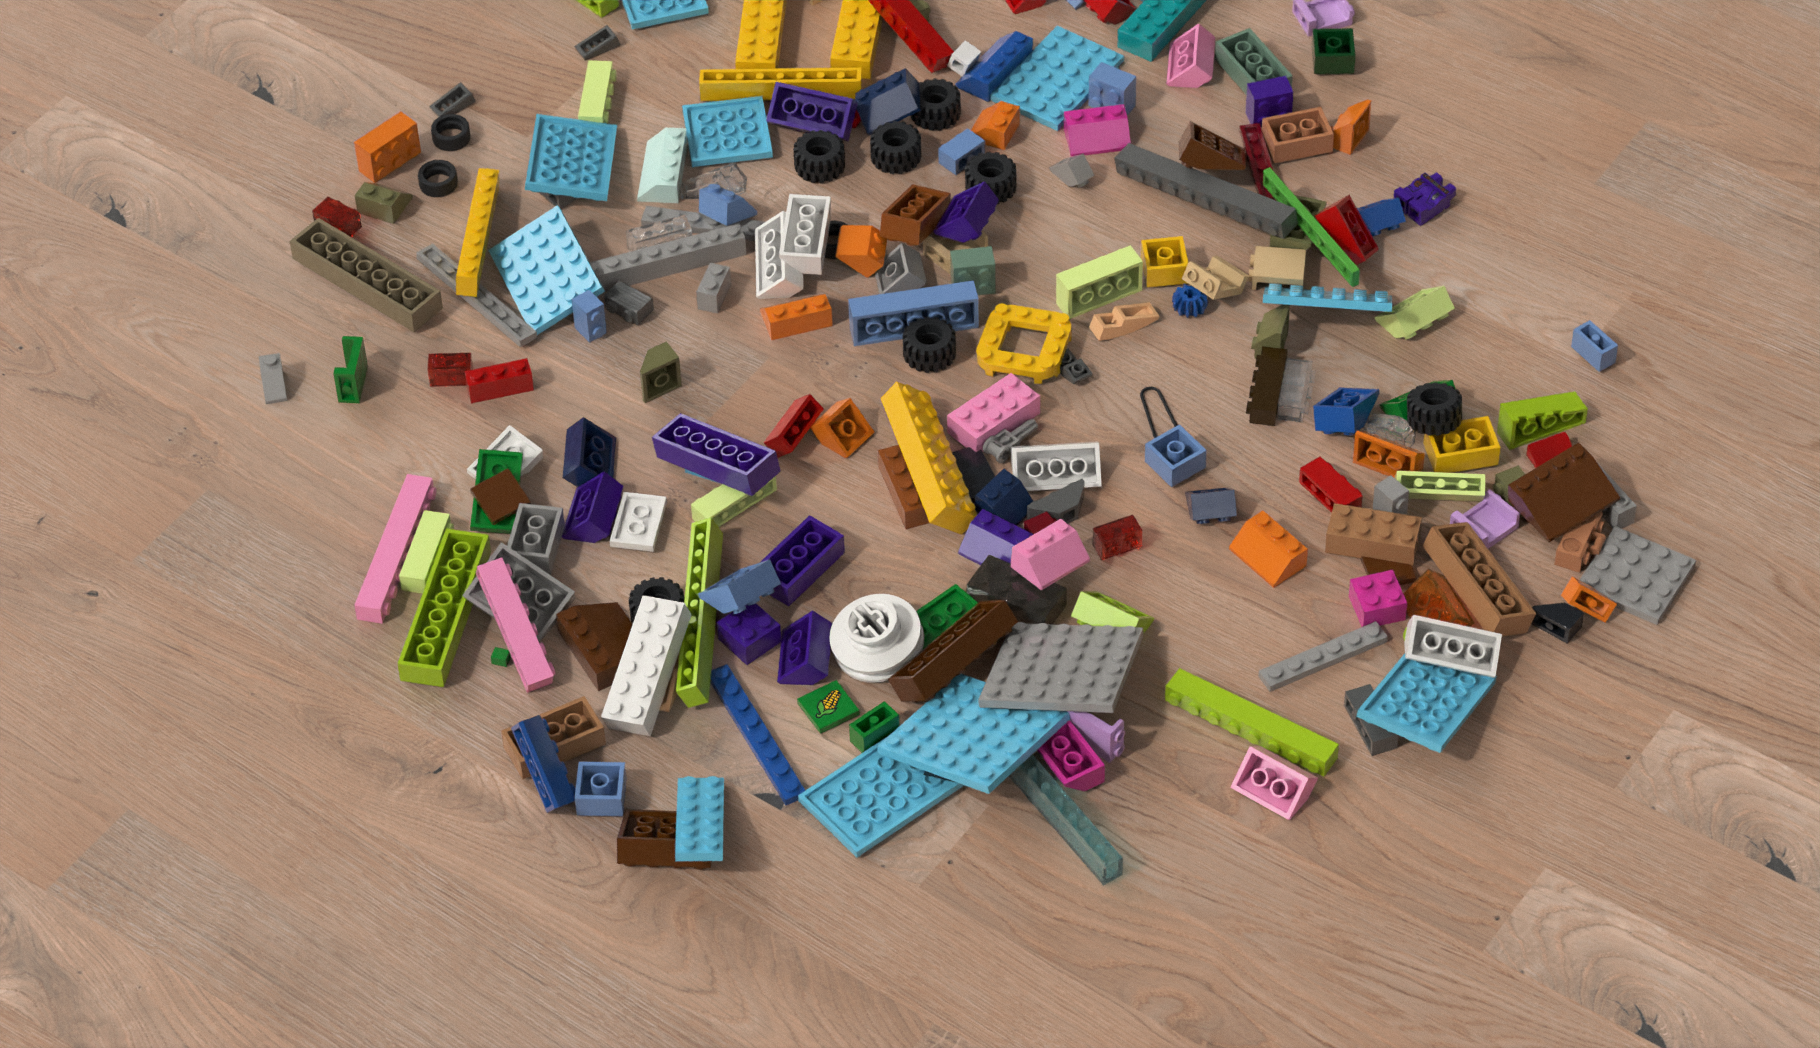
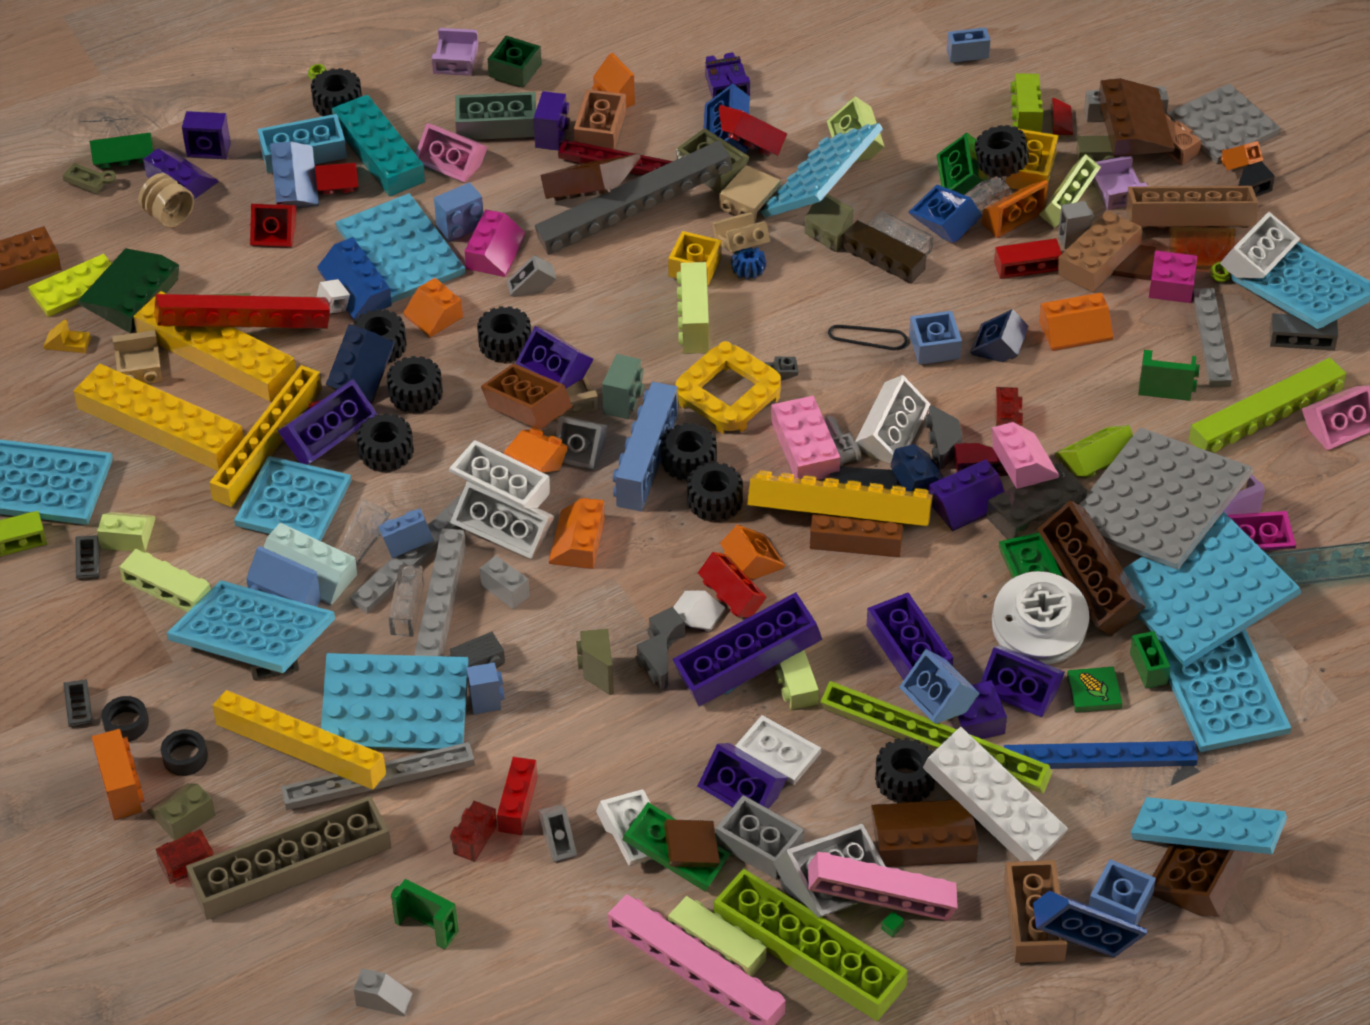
camera: 65 degrees left, 0 degrees up
(478, 417) = (557, 832): none -> light grey slope
(587, 452) = (666, 759): dark blue slope -> none
(628, 160) = (283, 577): none -> medium blue slope
(637, 50) = (125, 531): none -> yellowish green slope
(722, 405) = (652, 654): none -> dark grey arch
(758, 419) = (699, 609): none -> white slope
(892, 367) = (714, 504): none -> black tyre
(959, 150) = (451, 343): medium blue brick -> none
(1122, 320) = (742, 315): light nougat slope -> none
(1235, 646) = (1167, 378): none -> green panel
(1312, 228) = (739, 143): bright green tile -> none

